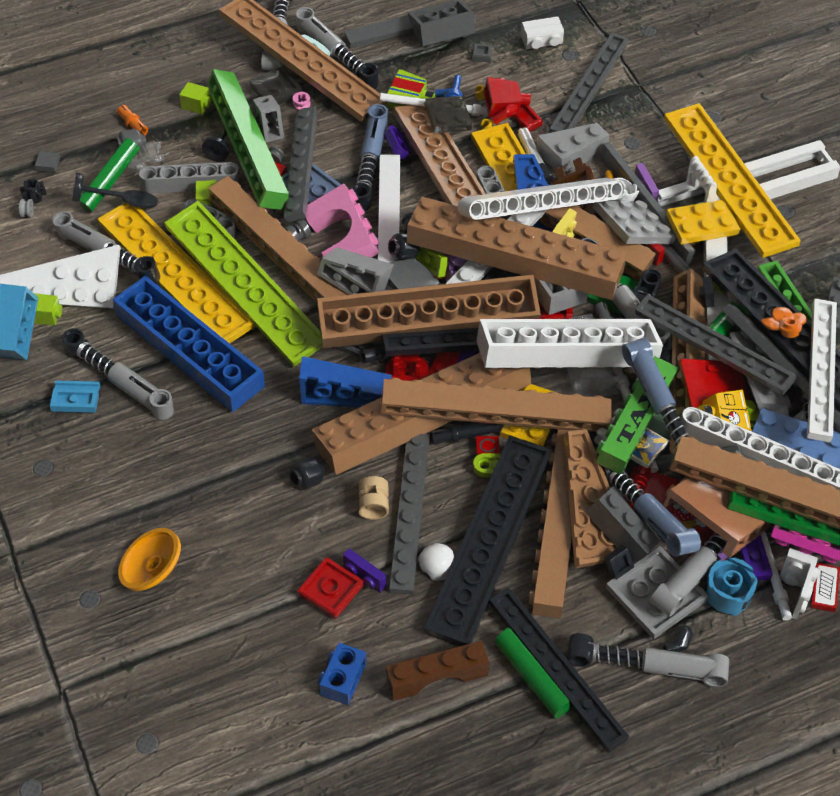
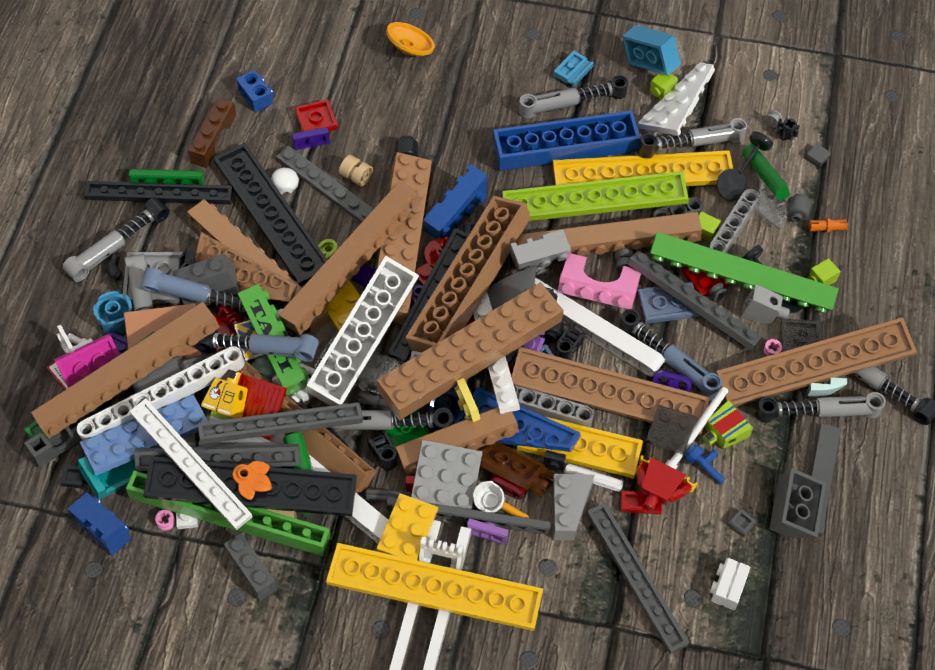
camera: 125 degrees right, 5 degrees up
(540, 198) = (497, 391): white beam -> none
(706, 292) = (335, 467): black plate -> none

